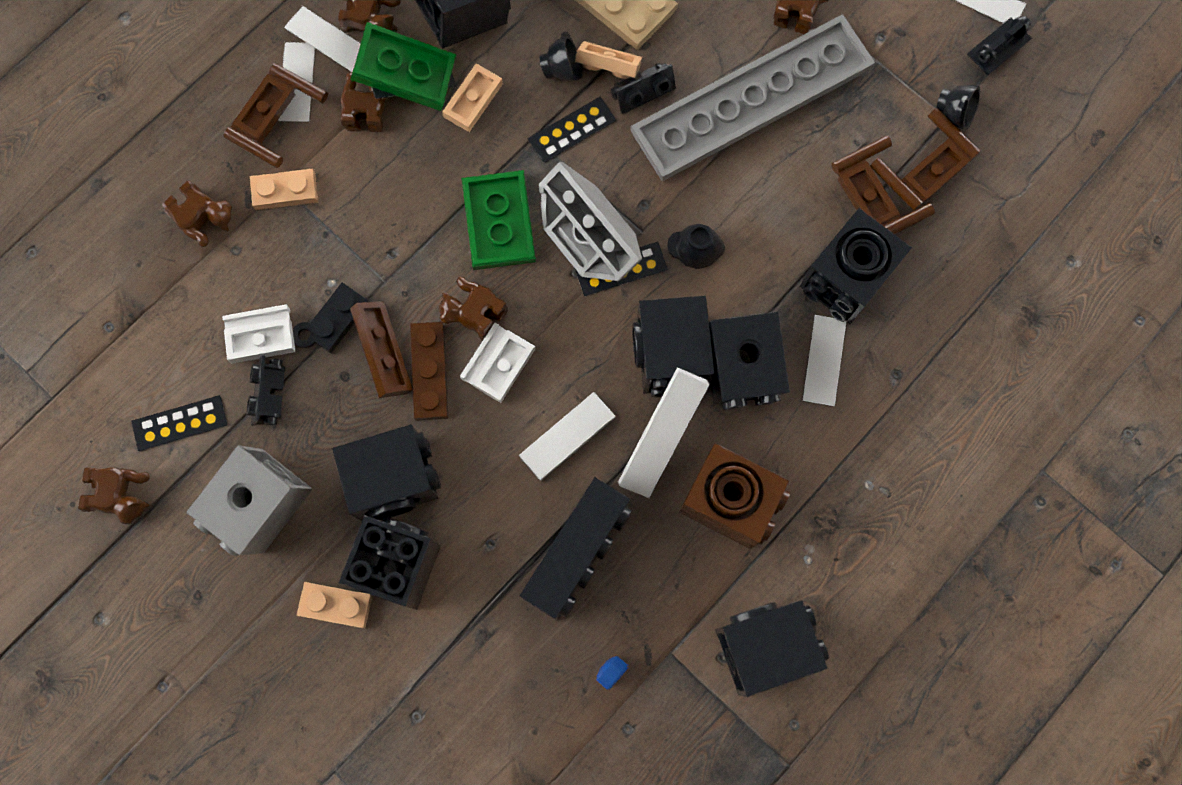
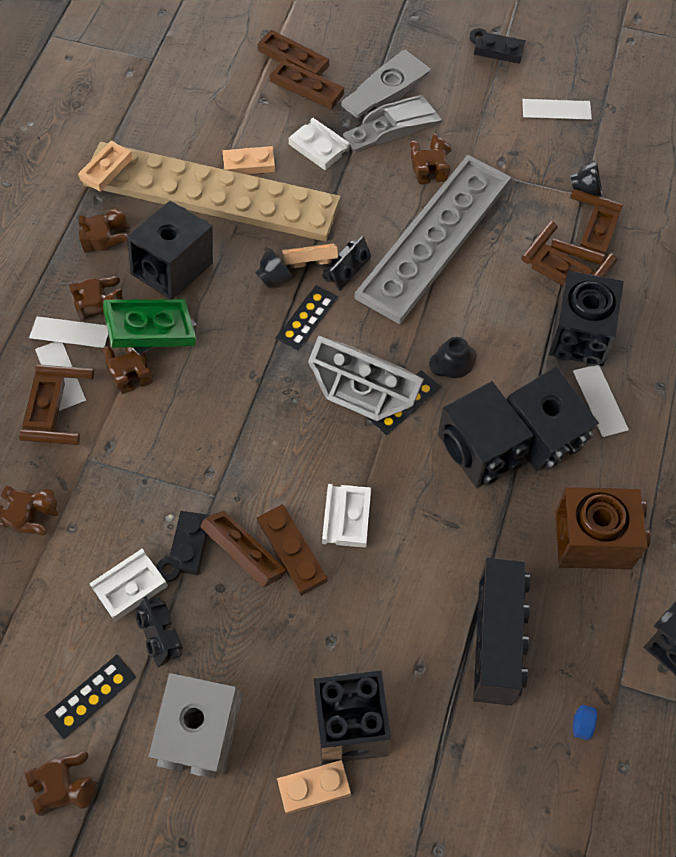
camera: 25 degrees left, 15 degrees down
(283, 189) = (91, 460): light nougat plate -> none
(387, 473) = (305, 643): black brick -> none
(472, 97) = (216, 325): light nougat plate -> none
(475, 310) = (309, 481): reddish brown animal -> none
(498, 220) = (286, 407): green tile -> none
(567, 436) = (435, 549): white tile -> none
(663, 432) = (517, 501): white tile -> none
(1001, 44) = (591, 131): black hinge -> none

